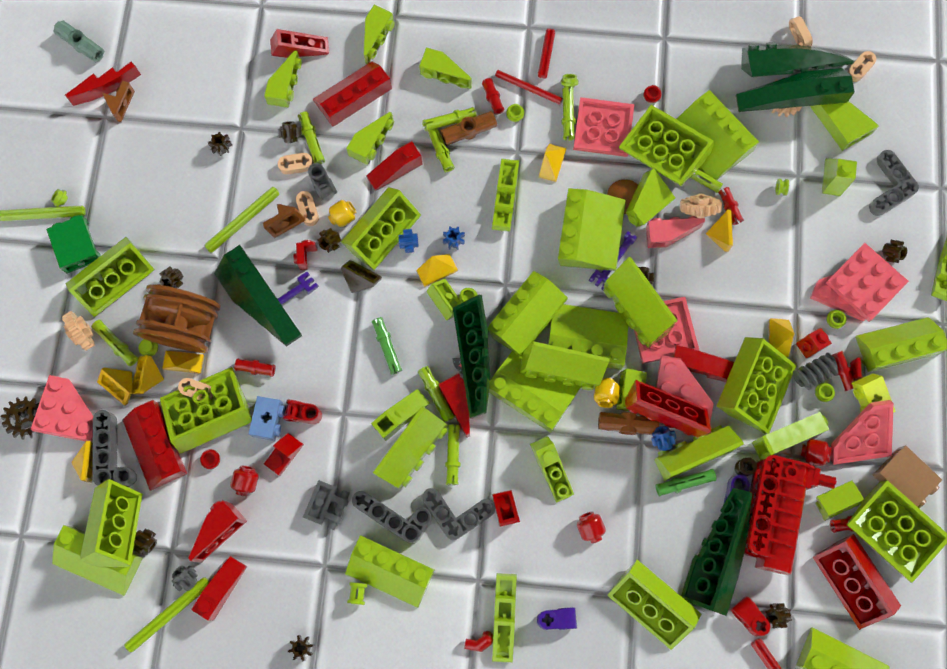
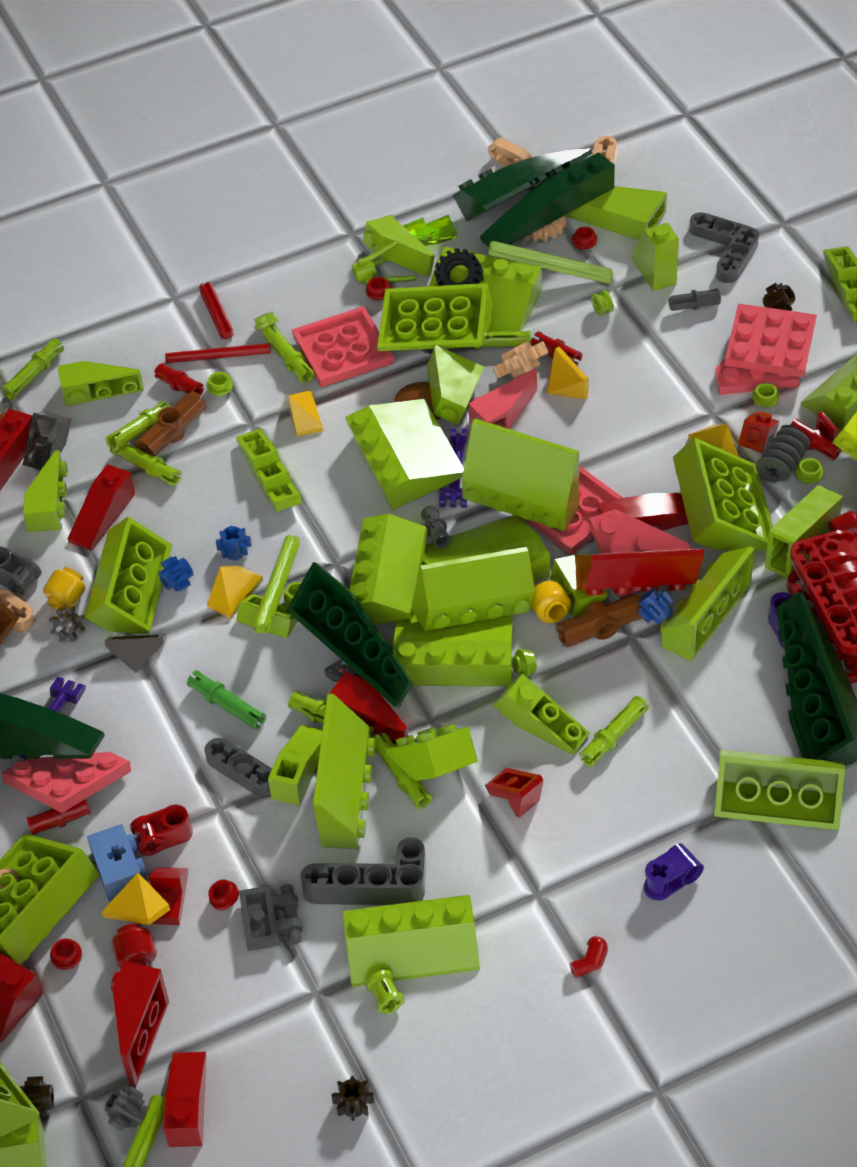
camera: 30 degrees left, 25 degrees down
(258, 457) = (137, 903): none -> yellow slope
(266, 351) = (65, 781): none -> coral plate
(300, 256) = (38, 655): red bracket -> none
(310, 475) = (223, 894): none -> red plate
(359, 384) = (235, 756): none -> dark grey beam
(392, 96) = (46, 434): none -> clear smoke slope
(418, 35) = (40, 361): none -> lime pin
(458, 285) = (276, 584): none -> lime axle
(458, 521) = (463, 839): dark grey beam -> none
(473, 459) = (434, 752): none -> lime slope
(504, 617) = (602, 910): lime slope -> none
(565, 426) = (524, 662): none -> lime plate
(574, 298) = (436, 527): none -> dark grey pin
(583, 505) = (619, 725): none -> lime pin
(591, 527) = (638, 750): red head -> none
(653, 75) = (365, 267): none -> lime plant
(679, 484) = (710, 651): bright green pin -> none
(683, 66) = (408, 253): none -> lime slope
(703, 107) = (454, 259): none -> black tyre
(711, 66) = (434, 231): none -> clear neon green slope
(751, 466) = (775, 582): dark brown bush -> none
(768, 138) = (550, 262): none -> lime axle
(804, 128) = (584, 238): none -> red plate
(842, 218) = (695, 299): none -> dark grey axle

